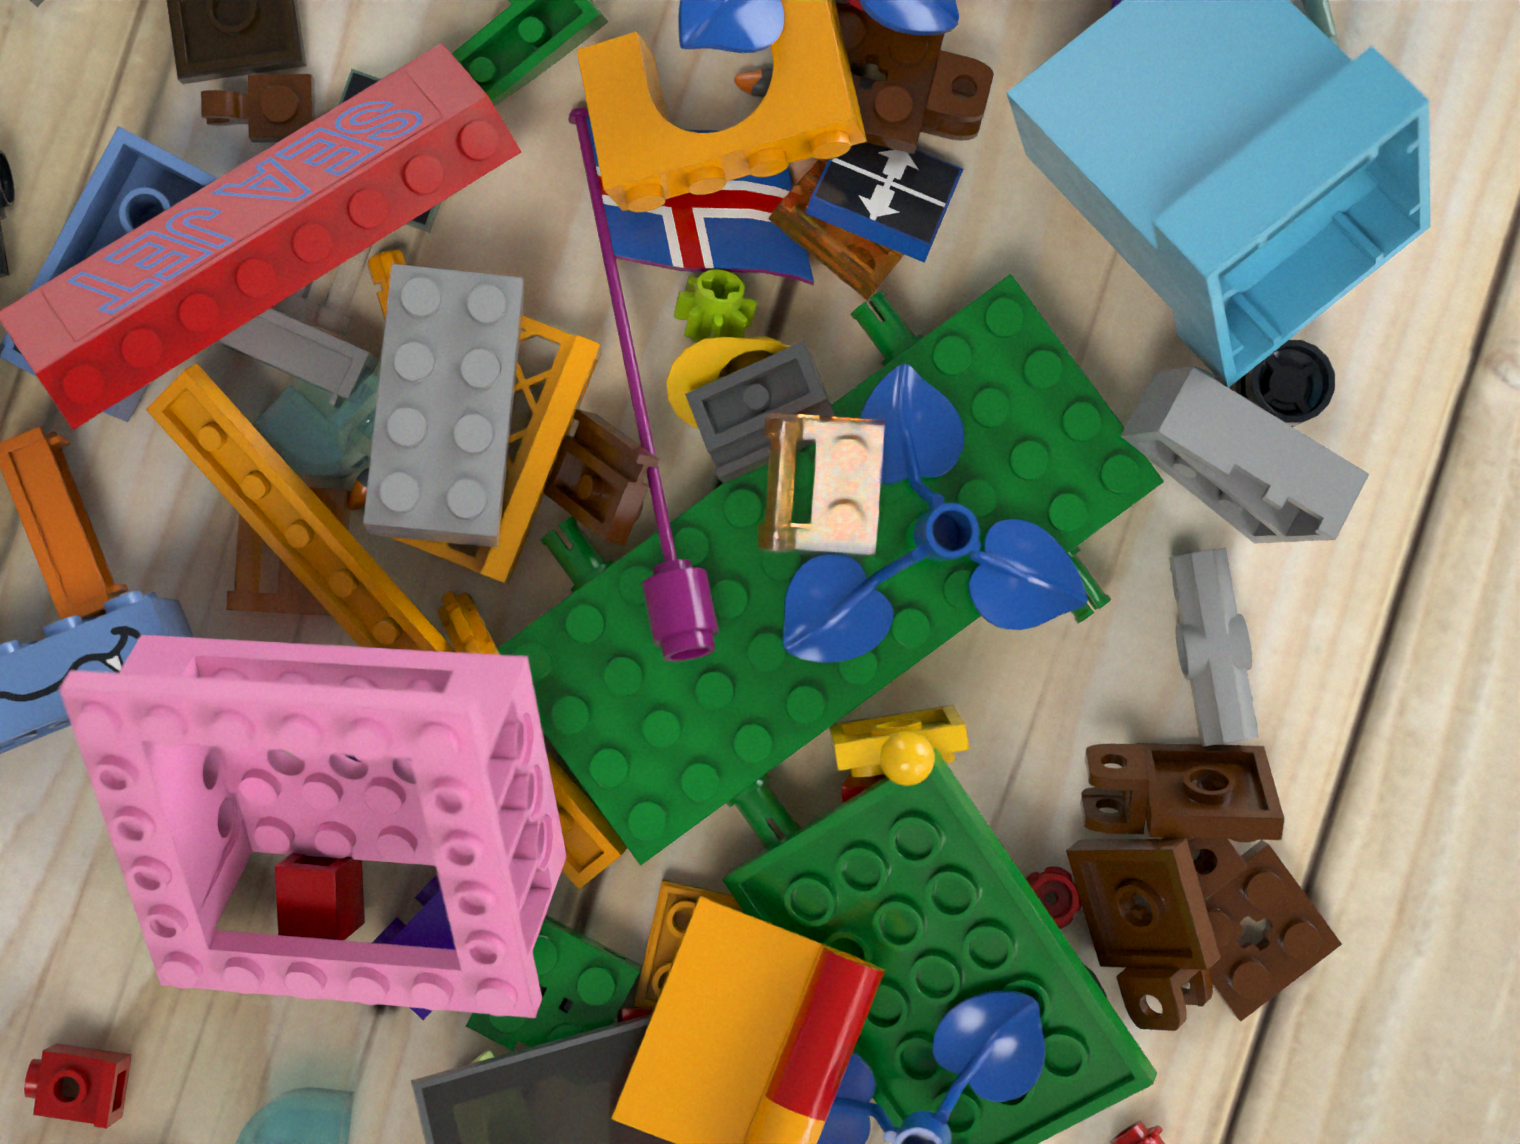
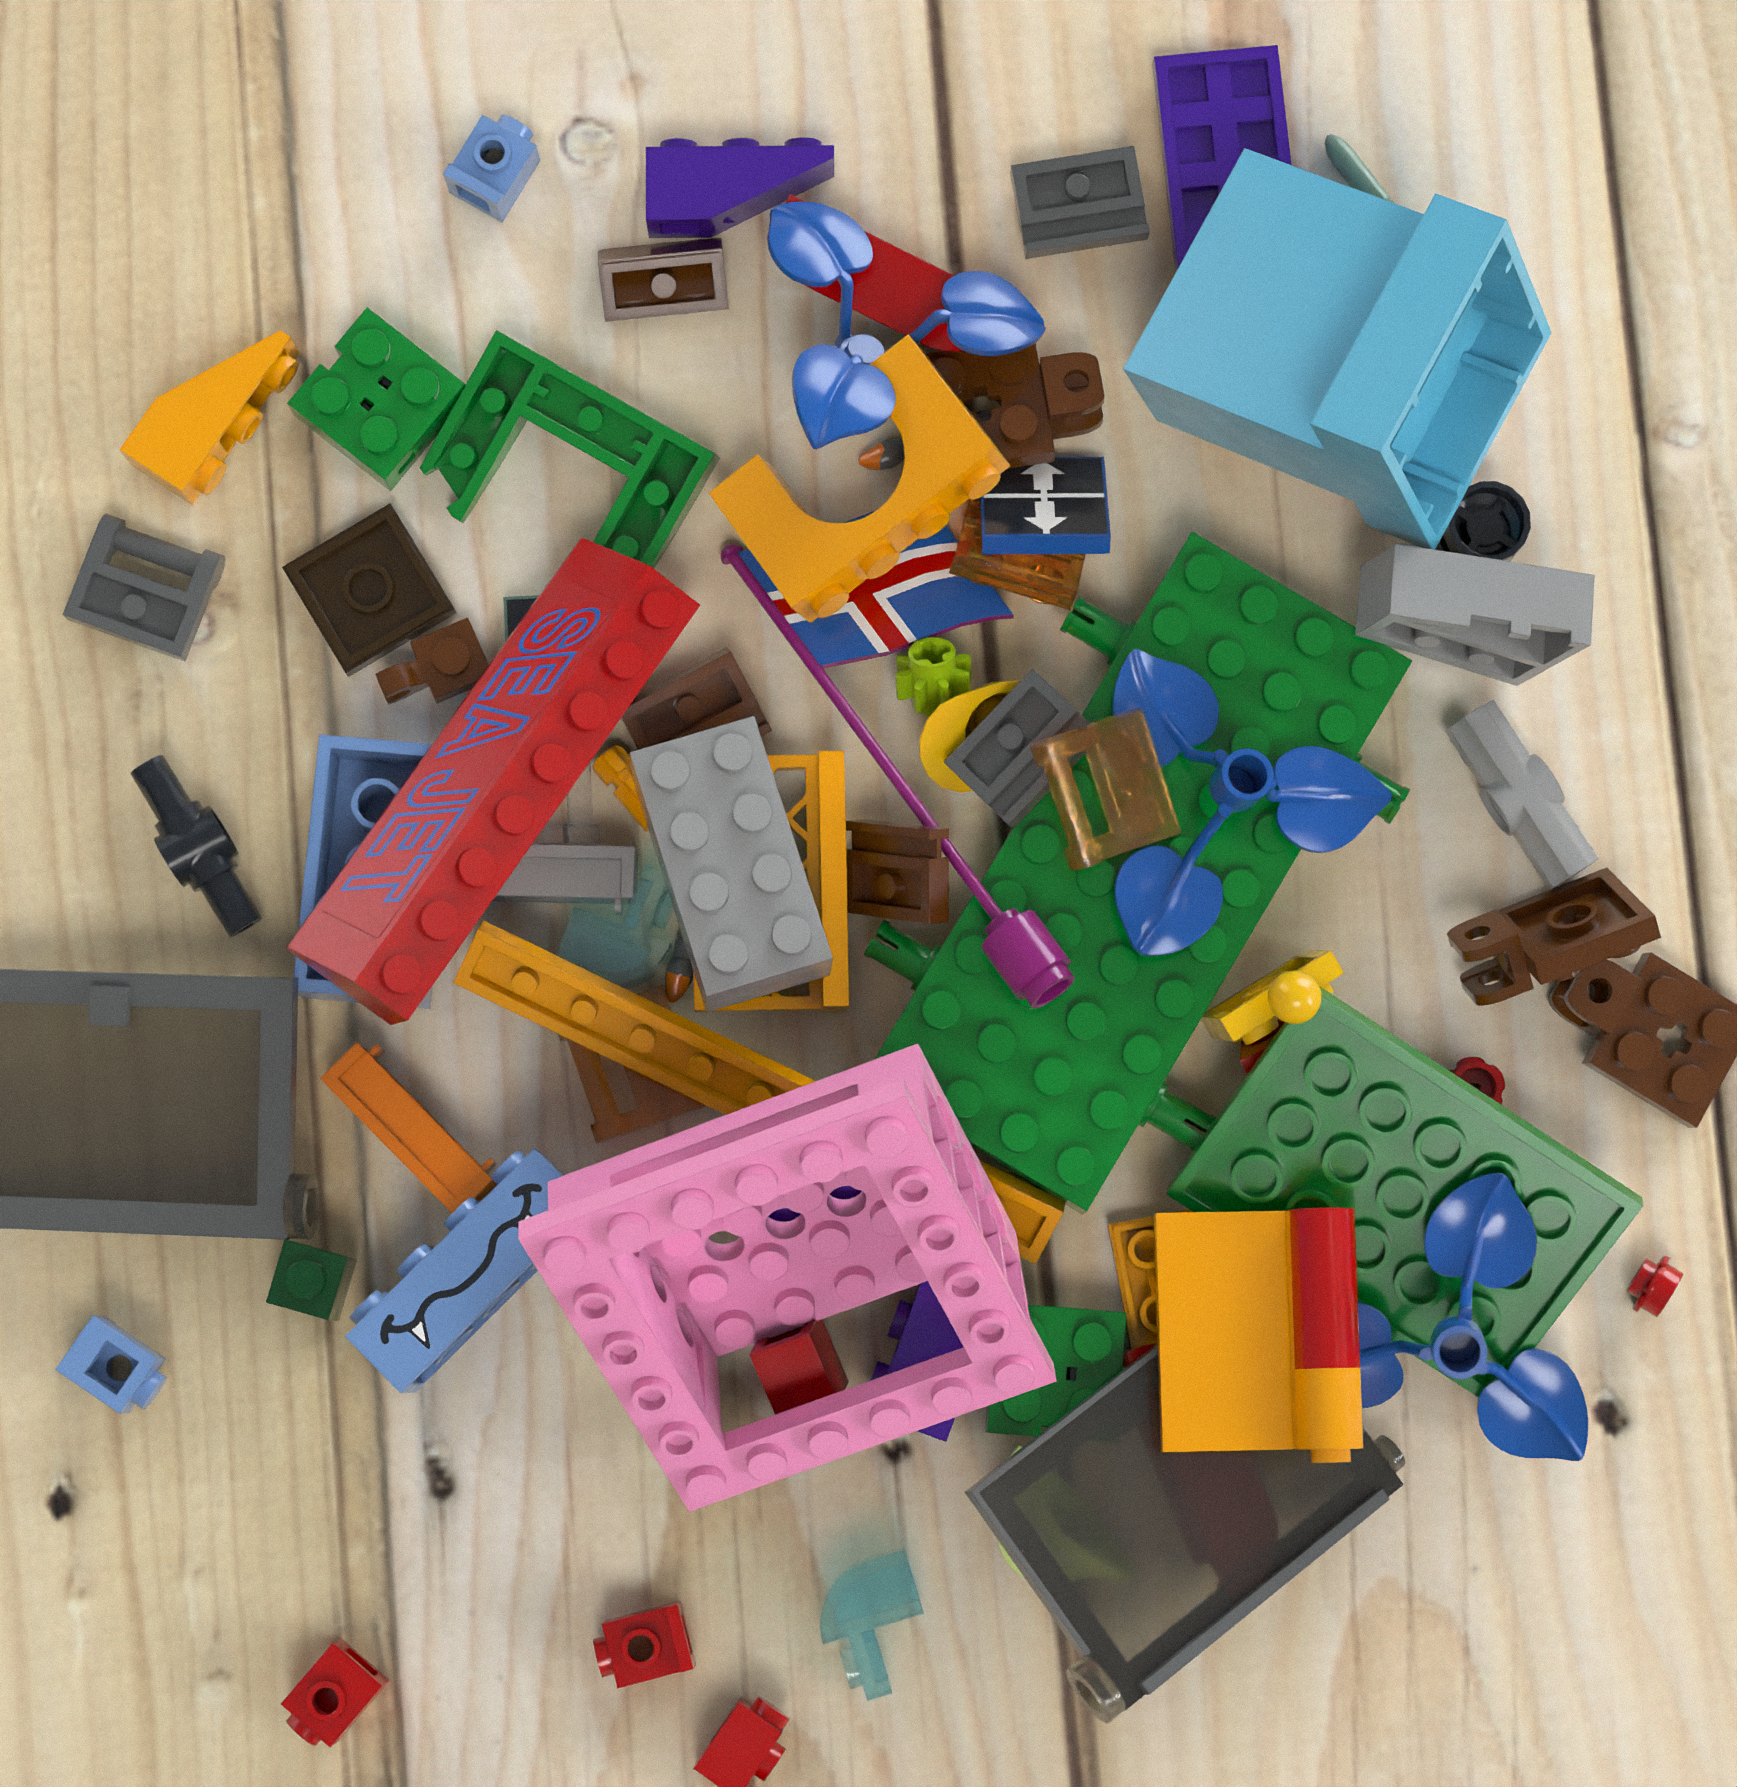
camera: 25 degrees left, 5 degrees down
(465, 625) = (821, 1058): light orange axle -> none
(484, 241) = (692, 702): none -> reddish brown plate
(1157, 948) = (1592, 1089): reddish brown plate -> none

